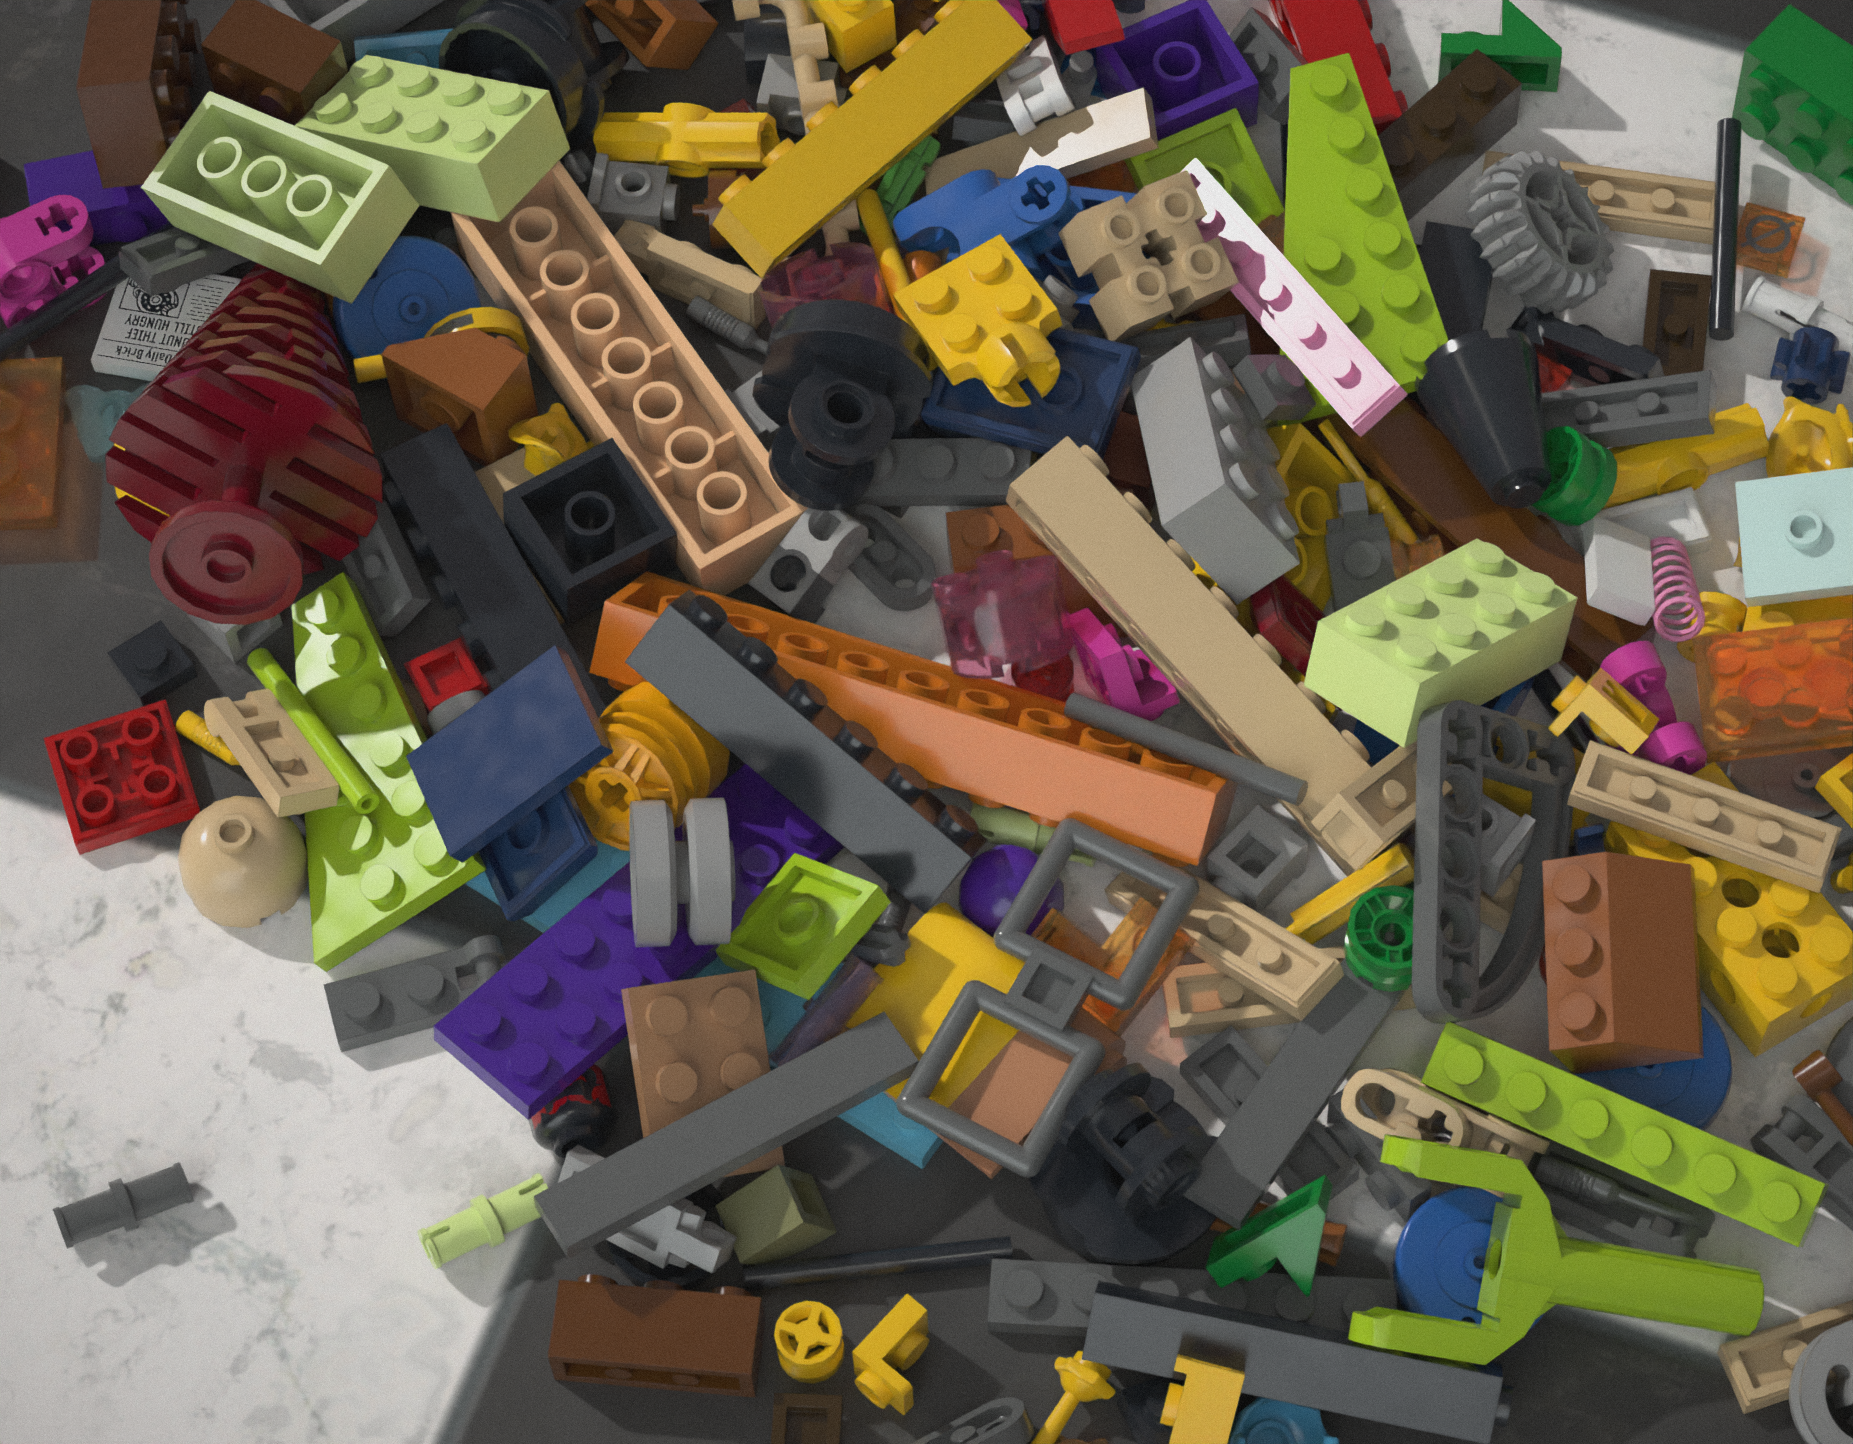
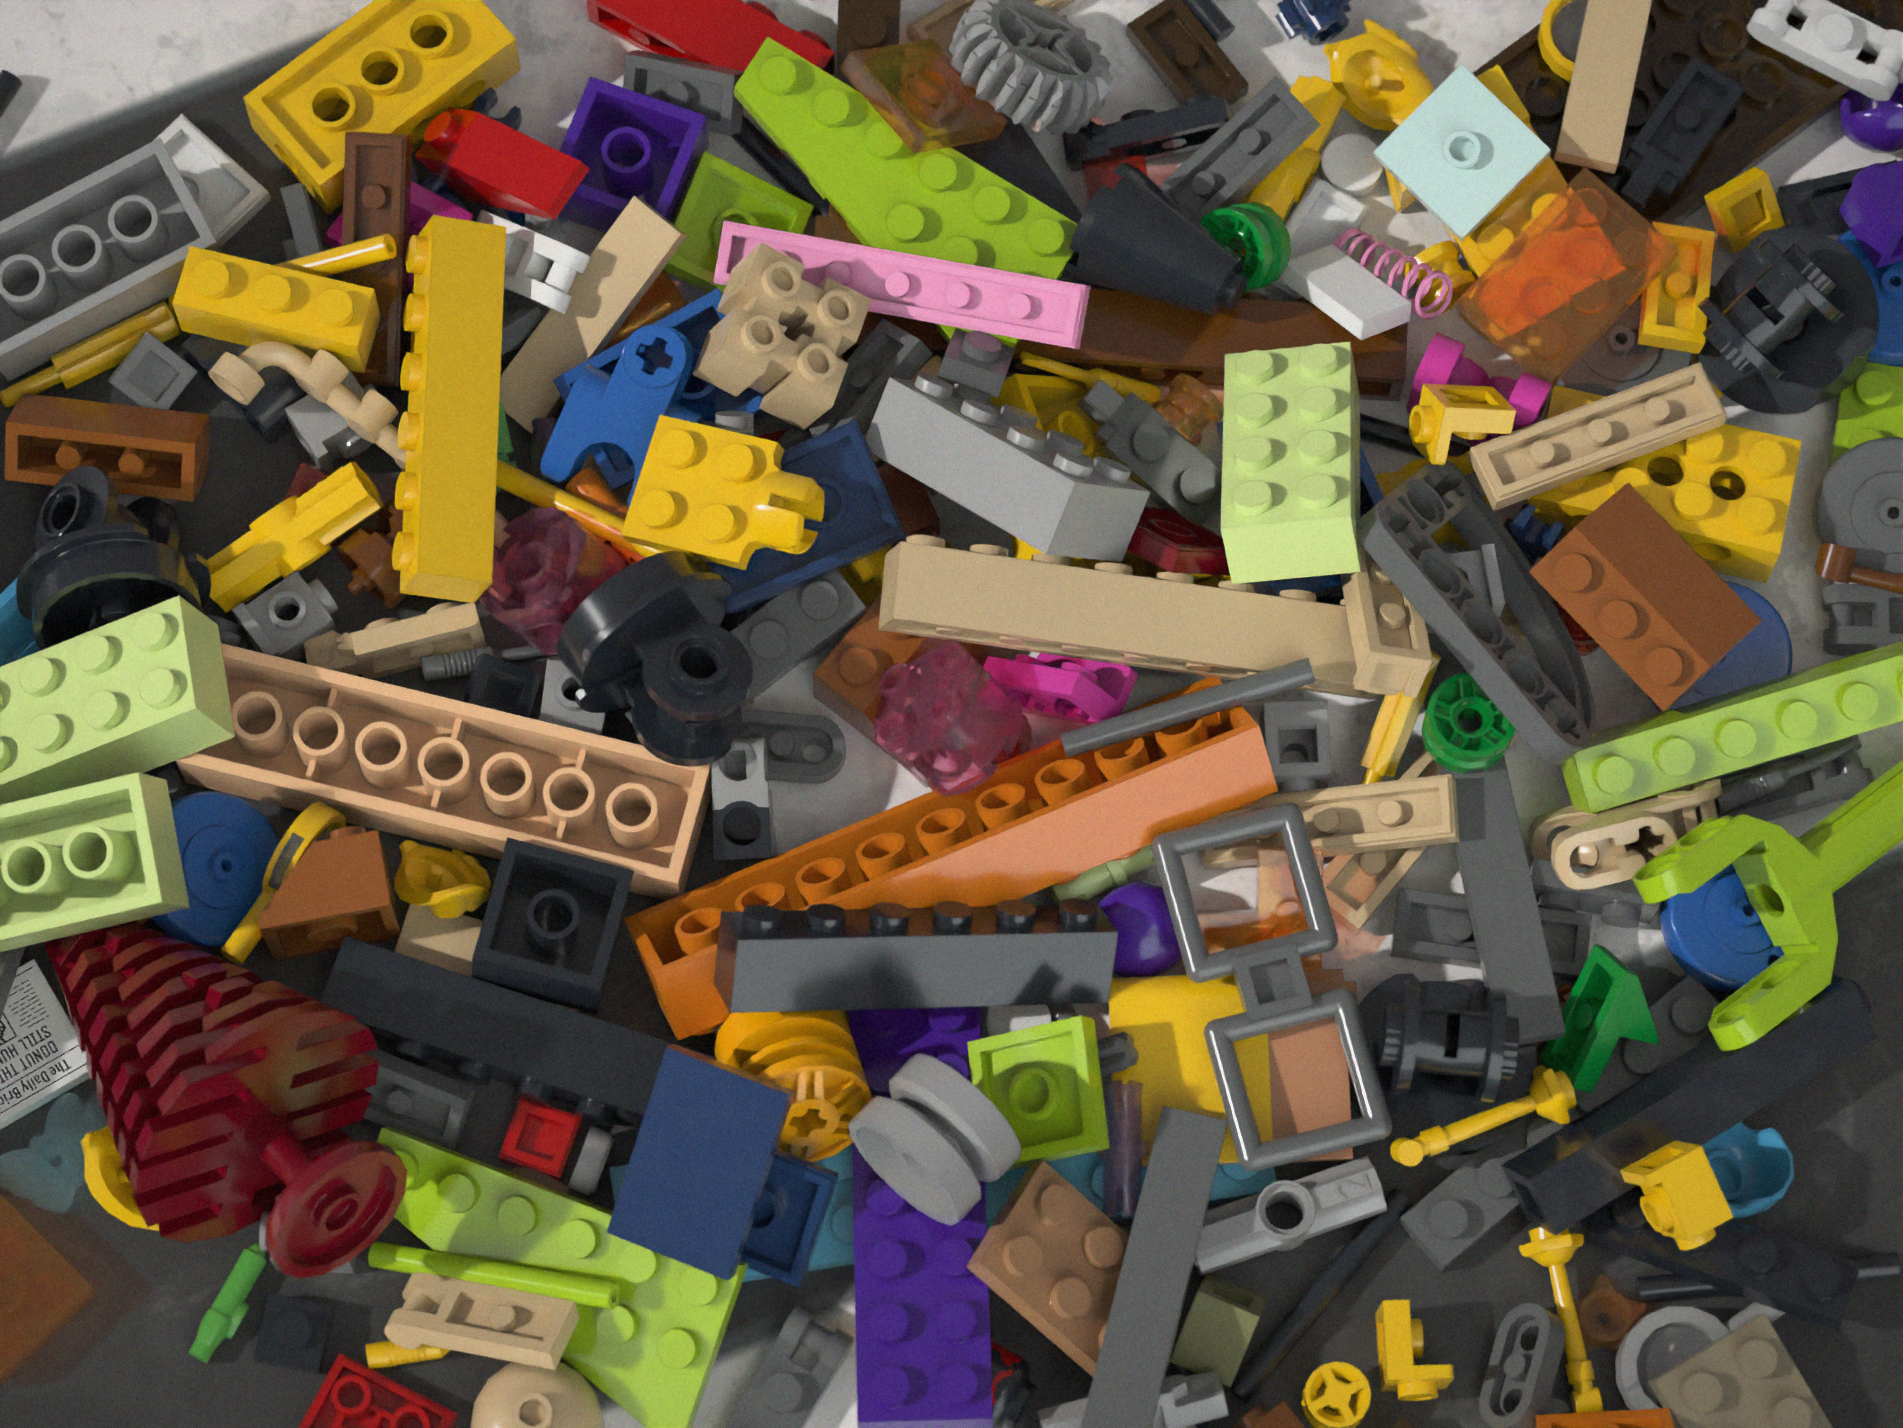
camera: 50 degrees left, 10 degrees up
(122, 612) = (230, 1305): none -> bright green piece
(729, 356) = (502, 686): none -> black plate
(940, 1196) = (1323, 1199): none -> light grey piece
(1182, 1258) = (1548, 1096): none -> yellow piece
(1425, 181) = (922, 95): none -> clear orange plate
(1719, 502) = (1351, 165): none -> white tile

